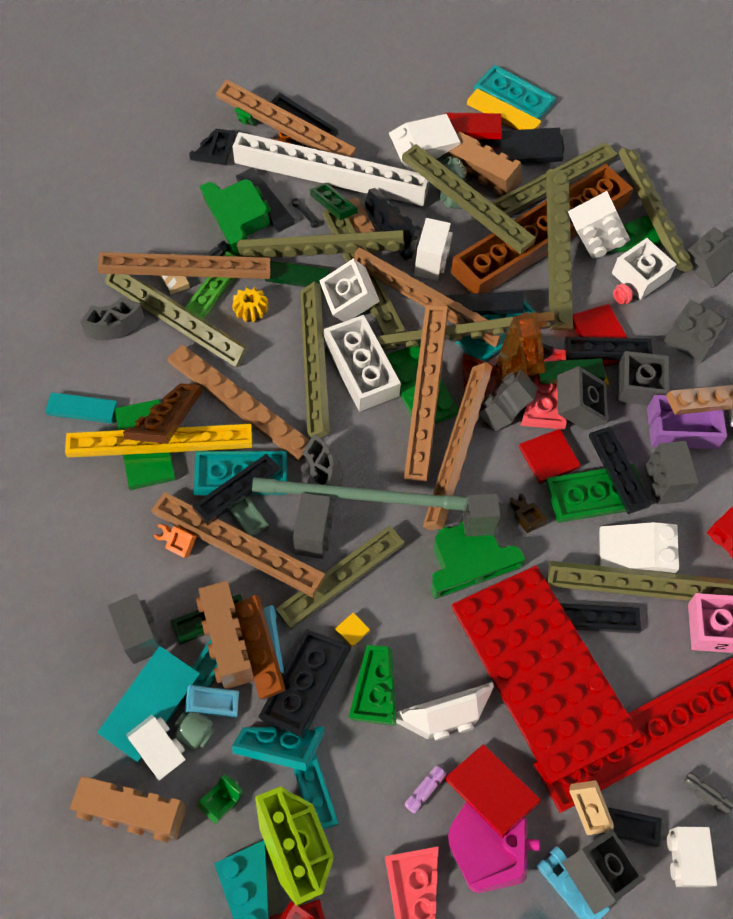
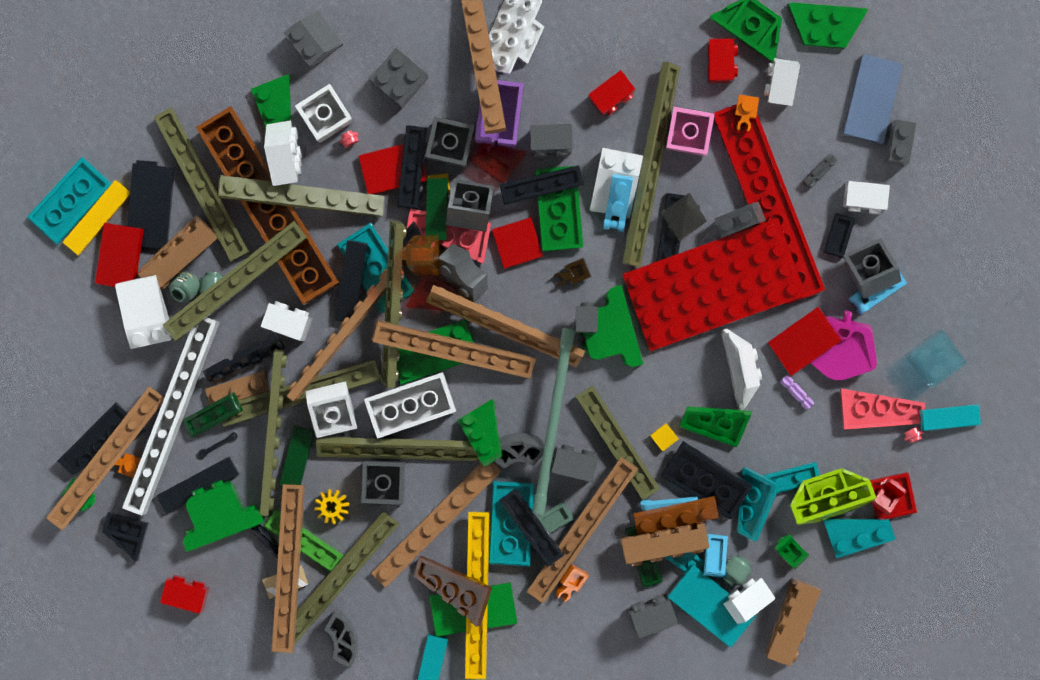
camera: 80 degrees left, 25 degrees up
(157, 192) = (185, 594): none -> red brick
(278, 344) = (383, 482): none -> dark grey brick
(338, 429) = (482, 432): none -> green wing
(591, 807) = (826, 267): tan plate -> none
(616, 627) = (683, 216): none -> clear smoke piece
(618, 550) = (618, 202): none -> medium azure plate
(631, 690) = (740, 219): none -> dark grey brick
(633, 429) = (497, 161): none -> clear red wing
(656, 211) = (247, 85): olive plate -> none

